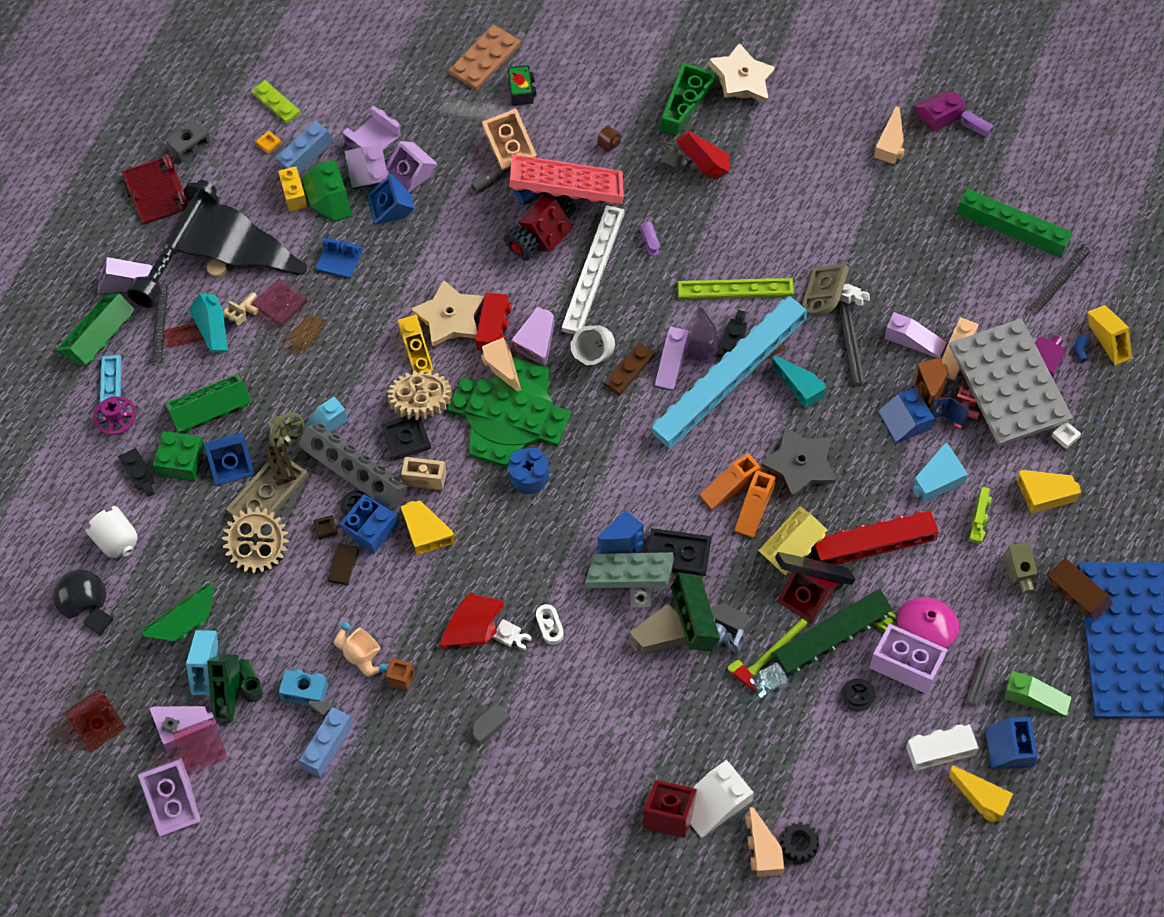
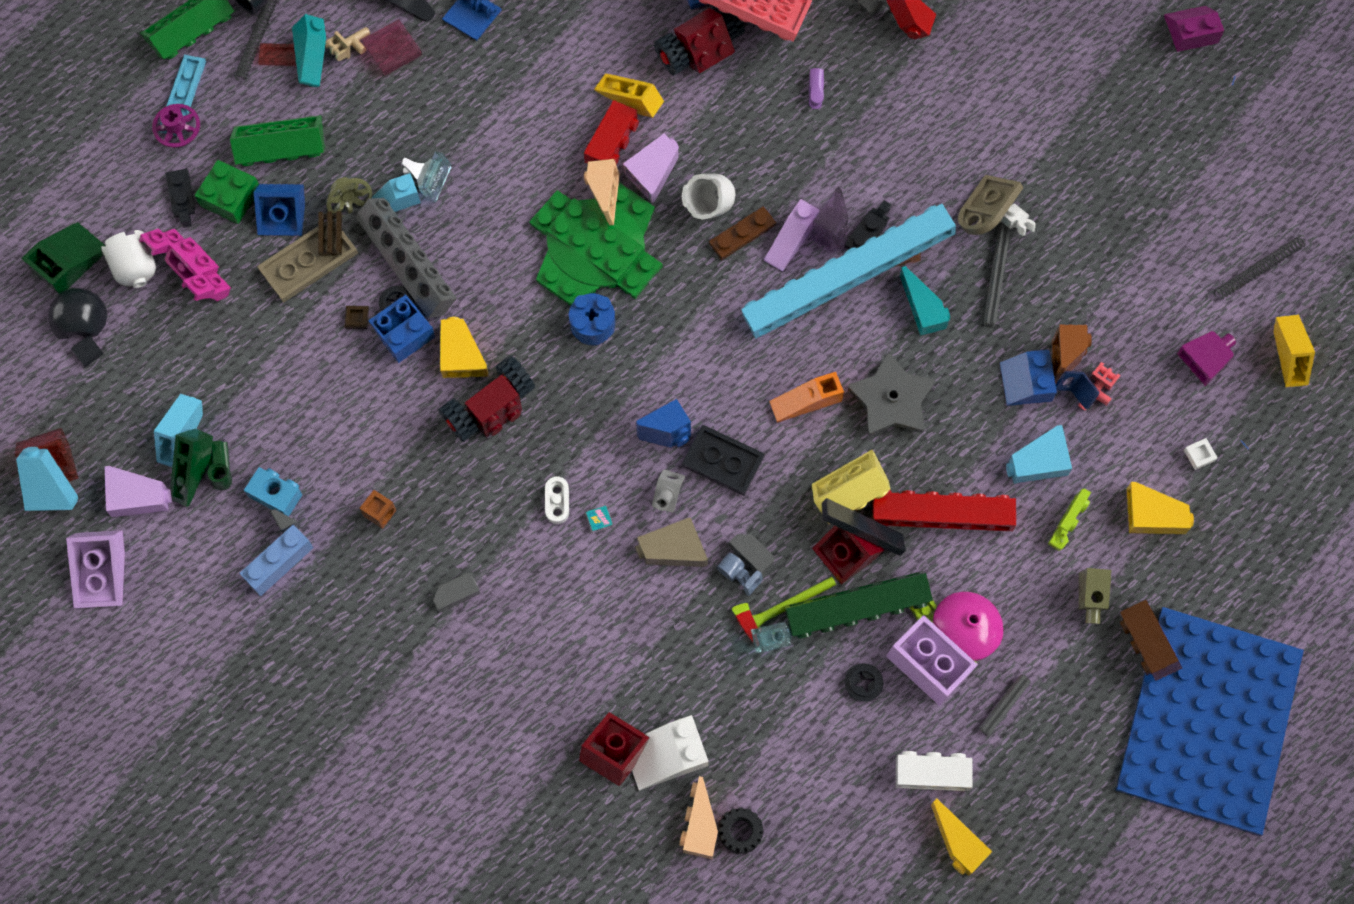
camera: 15 degrees right, 10 degrees up
(52, 549) = (64, 256): none -> dark green slope
(100, 737) = (43, 482): none -> medium azure slope
(166, 522) = (189, 262): none -> dark pink bracket
(170, 725) = (119, 492): dark grey piece -> none
(182, 617) = (169, 376): green wedge -> none
(200, 745) = (144, 522): clear pink plate -> none
(257, 521) = (282, 291): tan gear -> none
(307, 332) = (409, 89): clear orange piece -> none
(343, 564) = (361, 365): dark brown tile -> none
(349, 394) = (429, 175): none -> clear light blue piece
(359, 649) = (346, 466): light nougat piece -> none
(406, 437) = (475, 240): black plate -> none
(415, 344) = (519, 138): yellow slope -> none
(419, 394) = (504, 197): tan gear -> none
(424, 473) = (478, 289): tan brick -> none
(450, 314) = (567, 113): tan plate -> none
(468, 563) = (492, 405): none -> brick
(472, 622) = (474, 473): red slope -> none
(501, 282) = (632, 93): none -> yellow slope
(509, 633) = (510, 497): white plate -> none
(590, 629) = (599, 519): none -> tile
(593, 269) = (741, 107): white plate -> none
(629, 570) = (661, 467): sand green plate -> none
(695, 612) = (715, 537): dark green brick -> none
(735, 288) = (890, 174): lime tile -> none
(755, 504) = (825, 431): orange slope -> none
(891, 141) = (1123, 51): light nougat slope -> none
(913, 335) = (1070, 287): lavender slope -> none
(963, 329) = (1115, 315): light nougat slope -> none
(977, 124) = (1229, 56): medium lavender bar -> none
(1010, 382) = (1158, 375): light grey plate -> none
(1011, 743) = (1011, 793): blue slope -> none
(1014, 223) = (1230, 187): green brick -> none
(1036, 694) = (1060, 745): bright green slope -> none
(1079, 347) = (1256, 351): blue arm -> none

